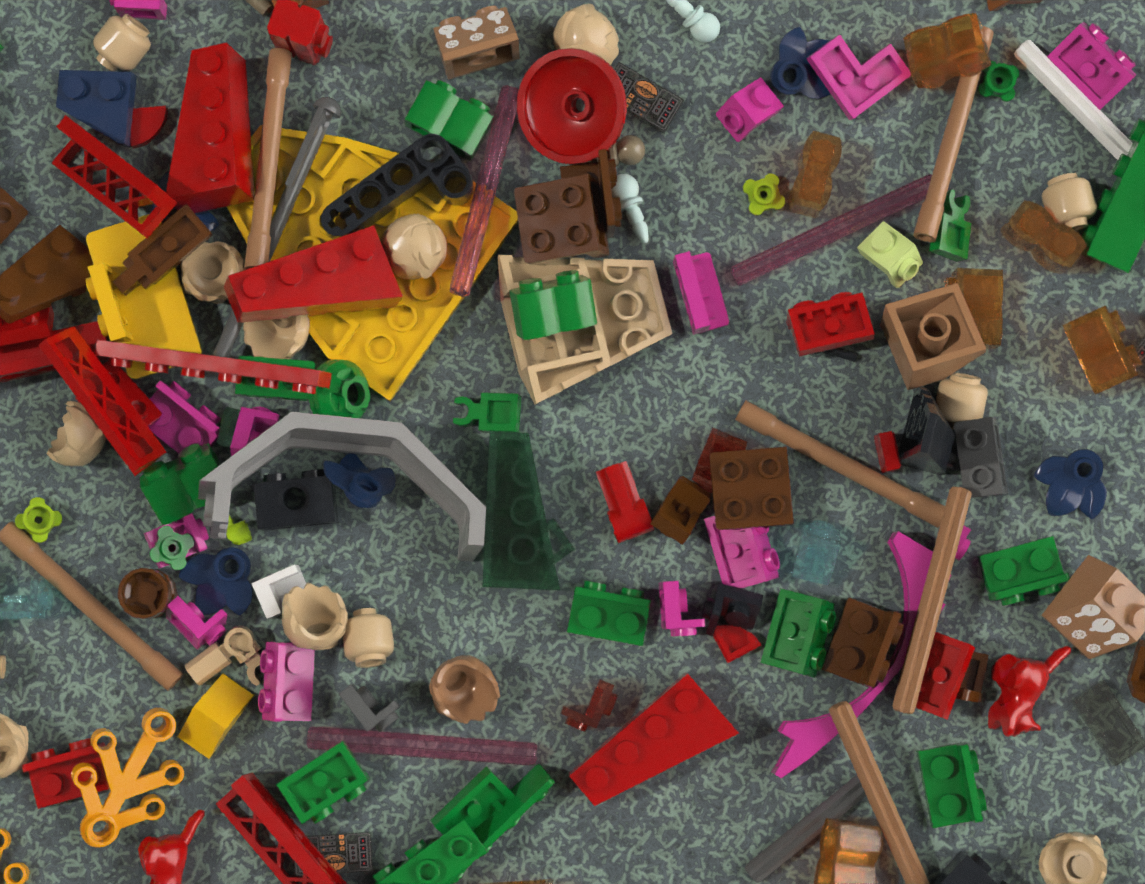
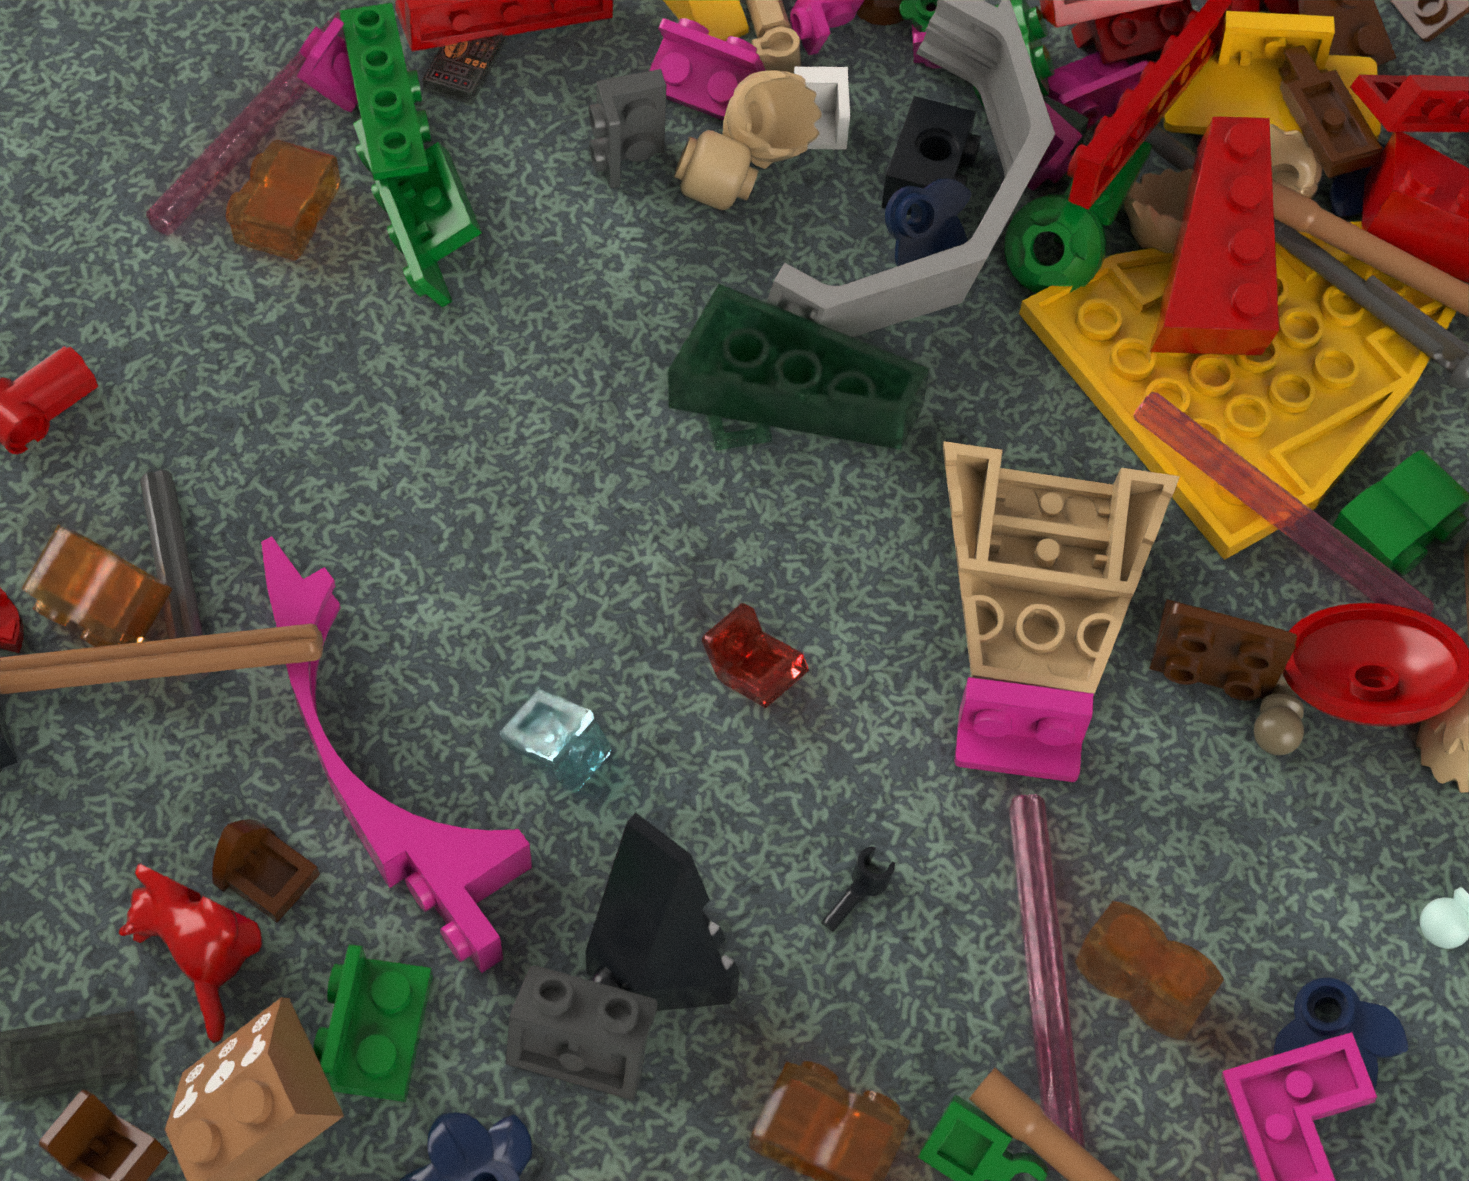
camera: 115 degrees right, 25 degrees down
(215, 585) = (872, 65): dark blue plate -> none
(238, 532) = (923, 88): lime hand -> none
(323, 782) = (558, 58): green bracket -> none
(393, 194) = (1343, 429): black beam -> none
(414, 246) = (1230, 387): tan hair -> none
(424, 746) = (528, 208): clear pink axle -> none
(464, 689) = (595, 237): medium nougat hair -> none
(493, 412) = (952, 412): green plate -> none
(553, 306) = (1078, 510): green brick -> none
(561, 219) = (1202, 564): reddish brown bracket -> none
(600, 703) = (486, 376): clear red bracket -> none
(609, 614) = (605, 448): green bracket -> none
(626, 509) = (736, 519): red piece -> none
(627, 189) = (1215, 701): light aqua bar -> none
(648, 100) = (1356, 785): tile -> none
(657, 738) = (405, 436): red wedge -> none
(672, 603) = (570, 500): dark pink bracket -> none
(681, 509) = (704, 576): reddish brown bracket -> none
(731, 607) = (538, 589): black bracket -> none
(734, 641) = (486, 585): red tile -> none
(743, 555) = (611, 647): dark pink bracket -> none
(748, 109) = (1292, 927): dark pink bracket -> none
(751, 488) = (690, 679): reddish brown bracket -> none
(757, 203) = (1156, 882): lime plate -> none
(769, 425) = (778, 754): medium nougat piece -> none
(799, 633) = (449, 667): green bracket -> none
(830, 323) = (897, 887): red bracket -> none
(862, 643) = (391, 738): reddish brown bracket -> none
(891, 254) = (970, 1041): yellowish green bracket -> none
(931, 335) = (815, 1018): medium nougat slope -> none
(932, 600) = (404, 841): medium nougat axle -> none
(943, 675) = (287, 811): red bracket -> none
(951, 784) = (118, 780): green bracket -> none
(961, 398) = (691, 1042): tan head -> none

